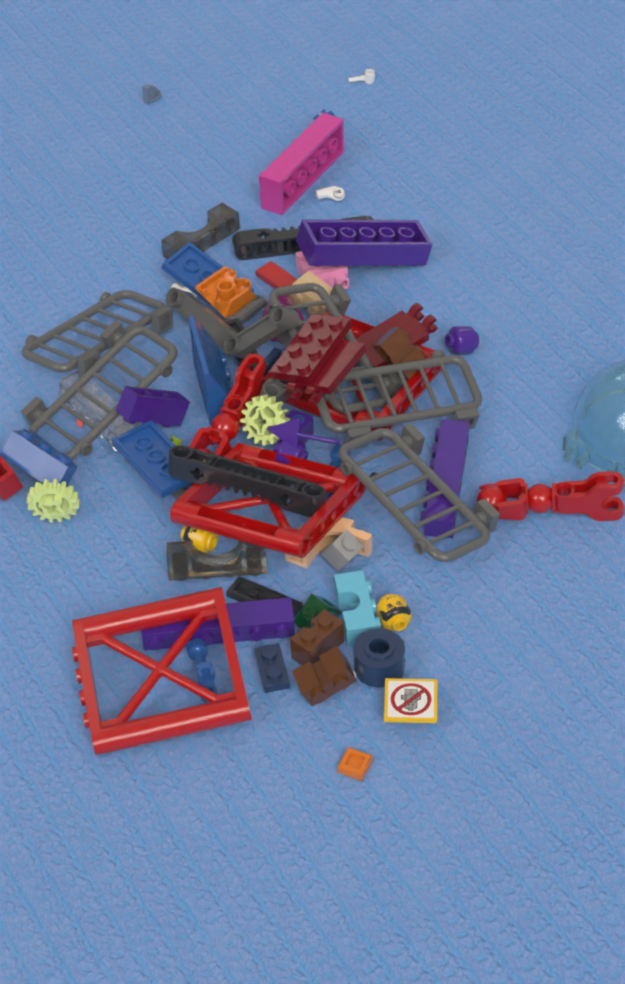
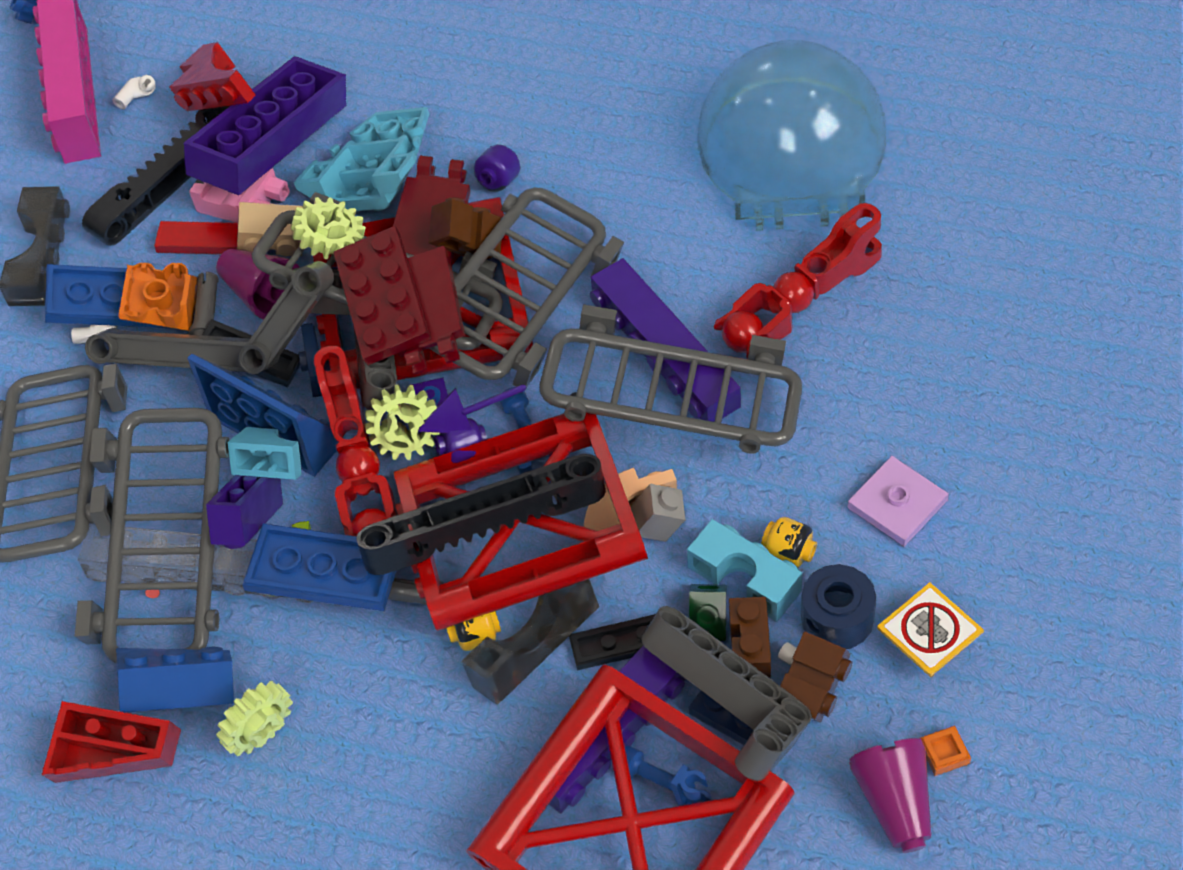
camera: 40 degrees left, 10 degrees up
(182, 387) = (264, 454): none -> medium azure arch
(280, 670) = (735, 685): none -> dark grey beam
(303, 755) = (897, 790): none -> magenta cone
(324, 300) = (326, 226): none -> yellowish green gear
(363, 204) = (210, 81): none -> red arch
(388, 298) = (373, 164): none -> medium azure wedge
(476, 637) = (898, 501): none -> lavender plate

